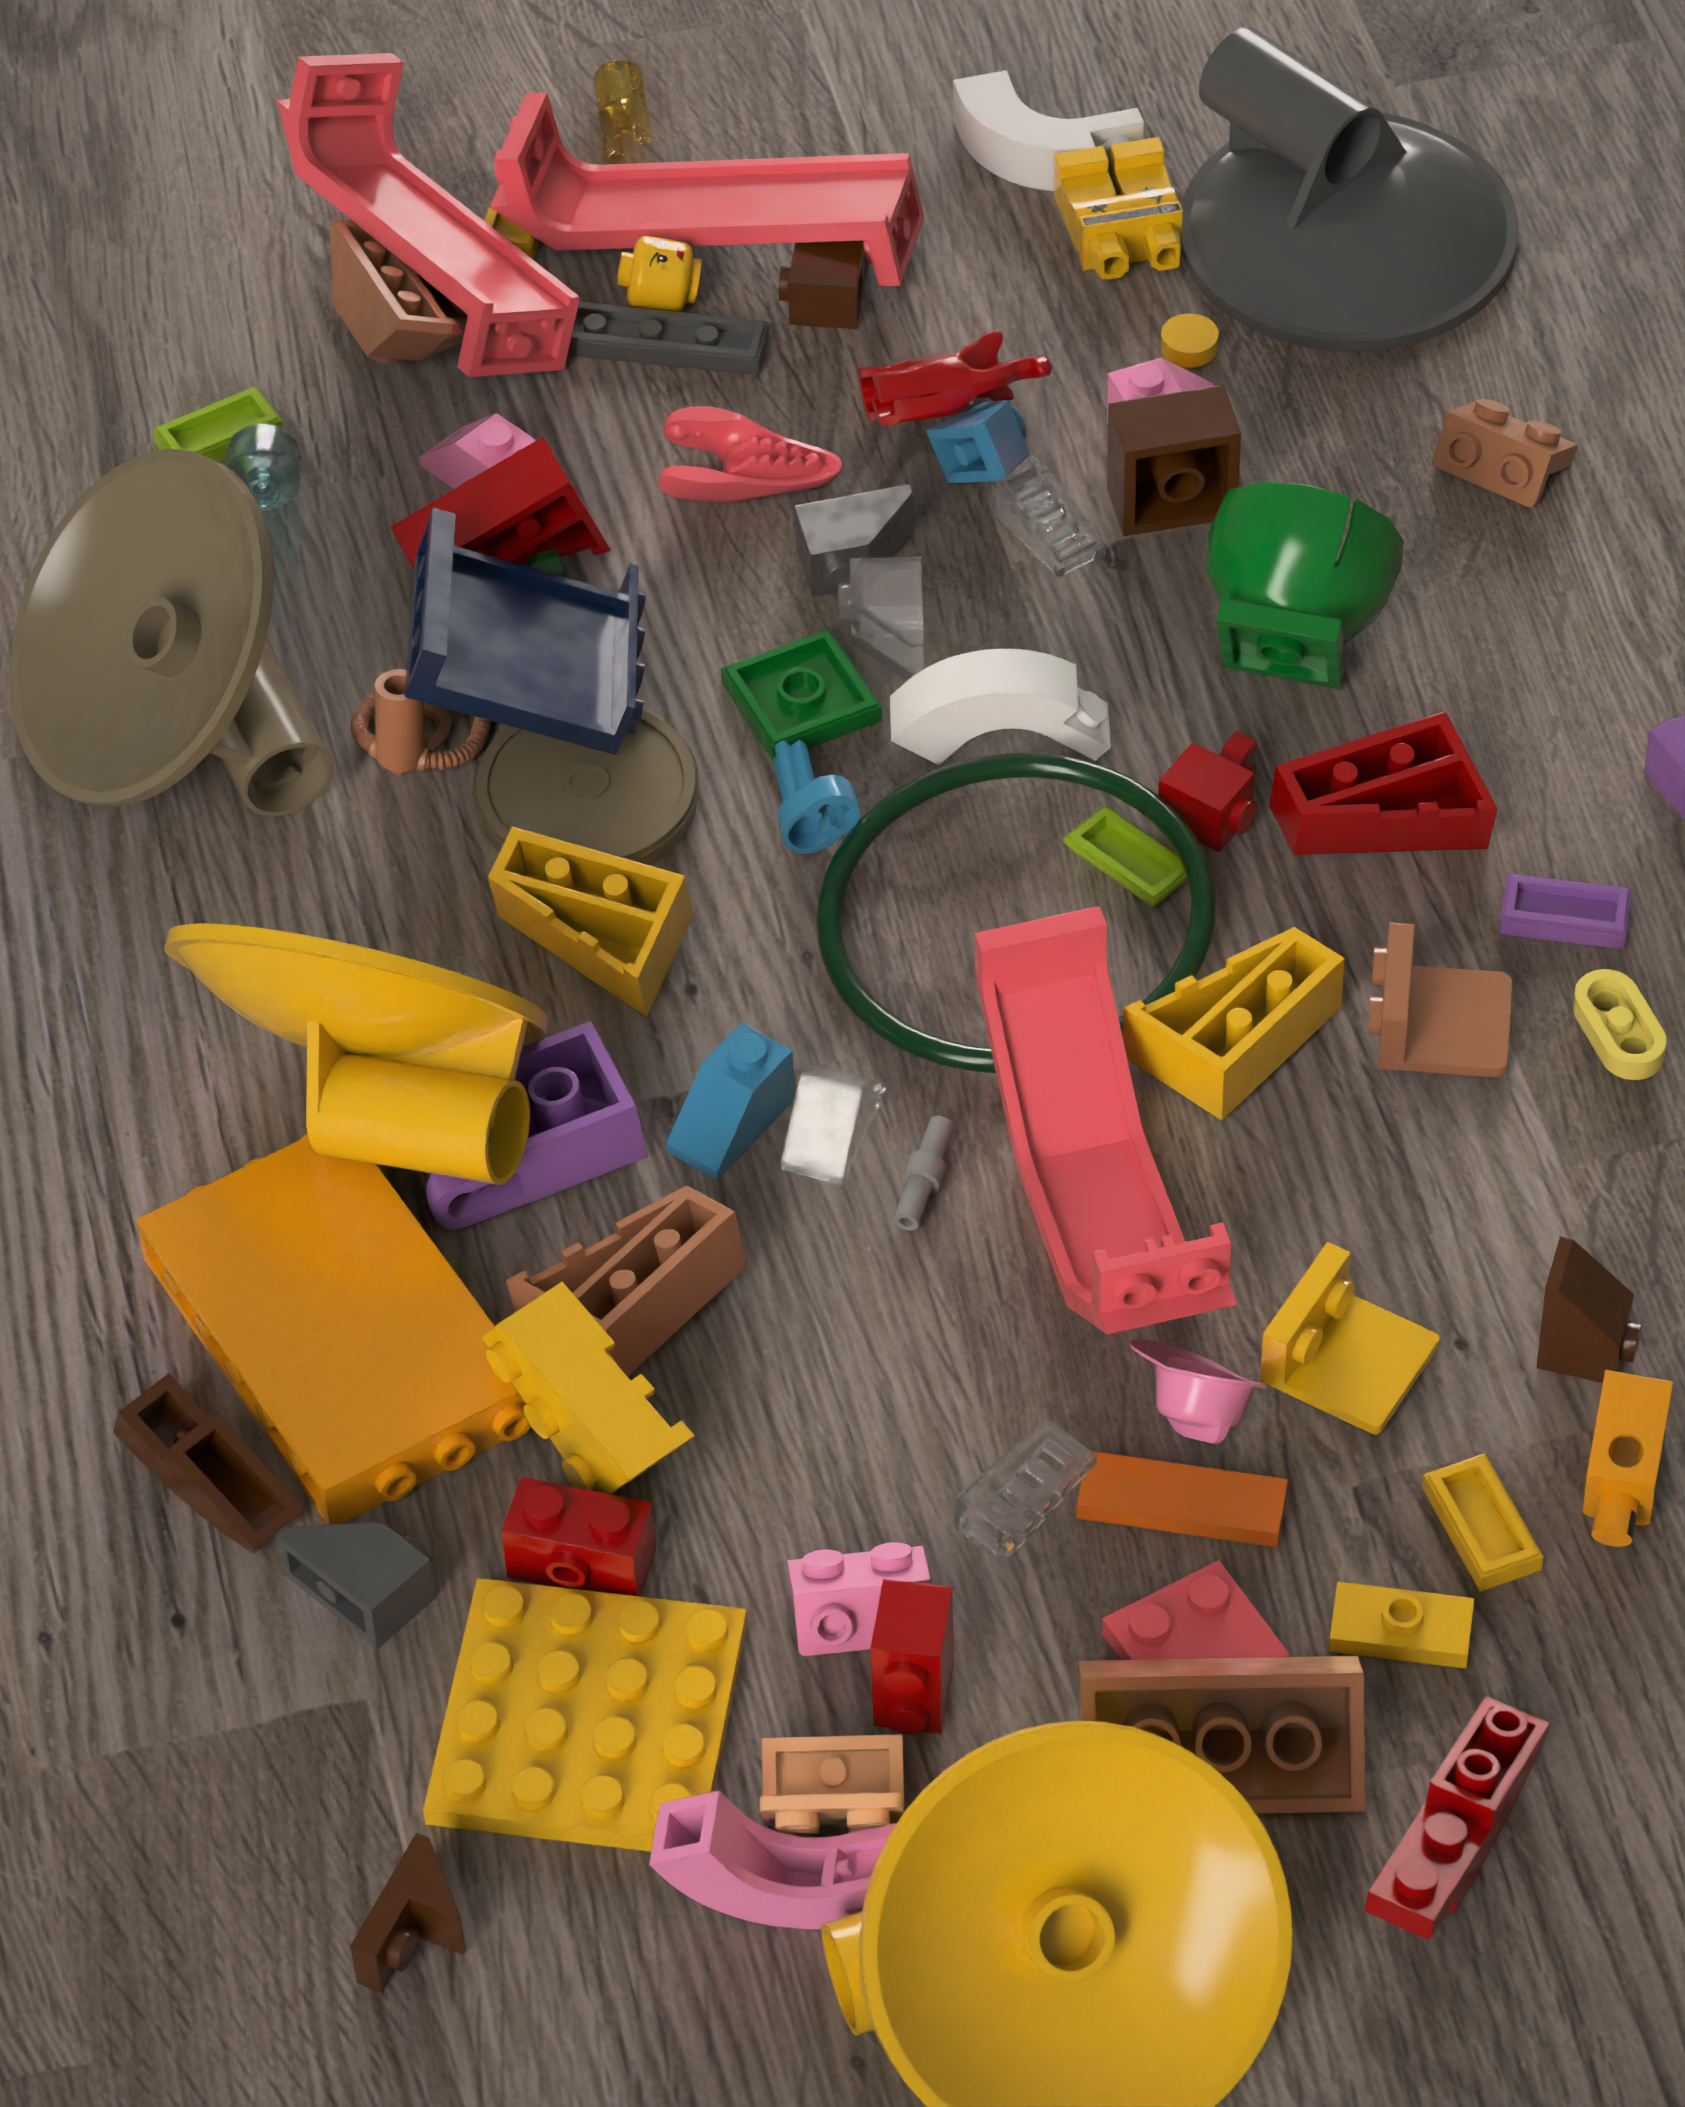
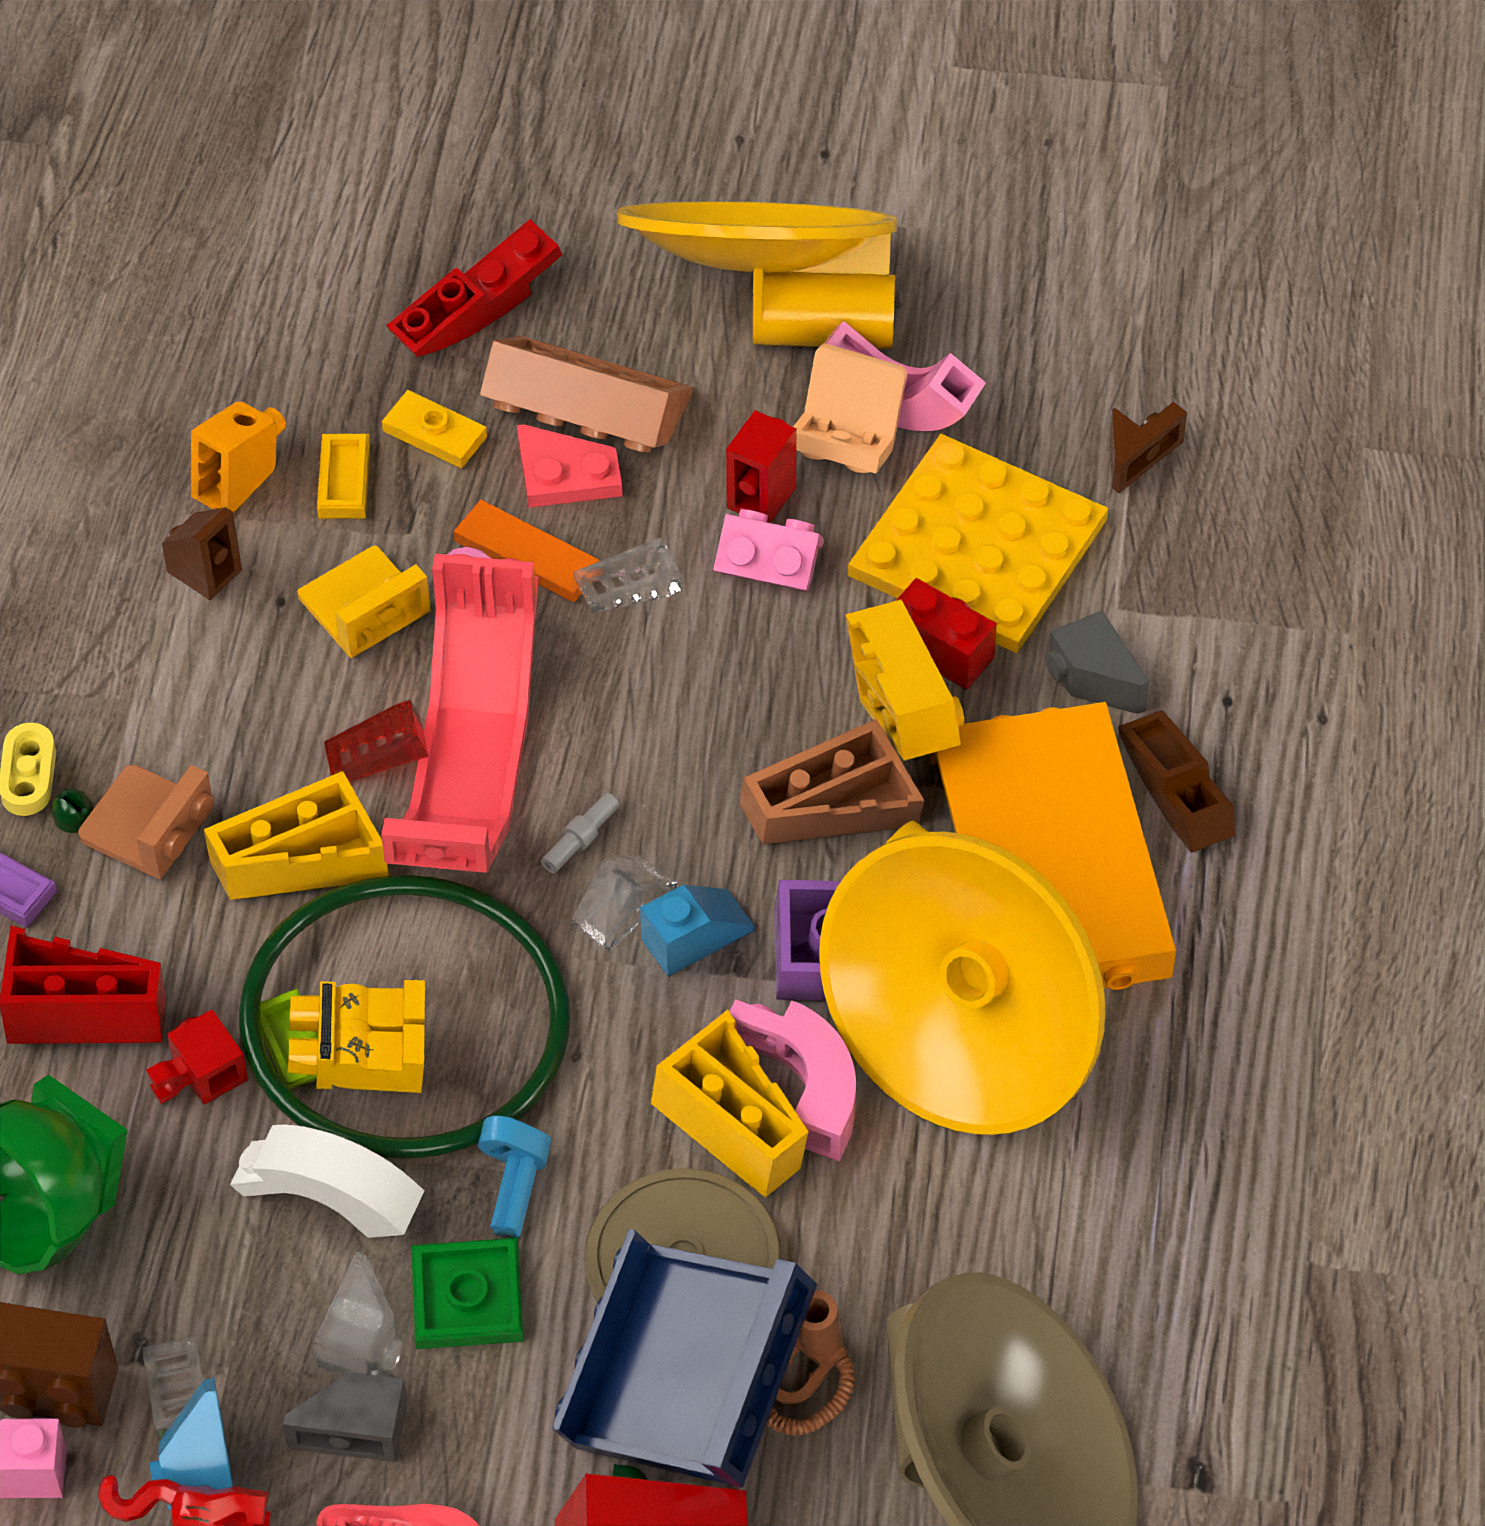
camera: 160 degrees left, 5 degrees up
(491, 951) = (818, 1058): none -> bright pink arch
(1036, 825) = (363, 1036): none -> yellow hips
(1197, 1202) = (396, 752): none -> clear red slope
(1539, 1010) = (65, 815): none -> dark green hinge

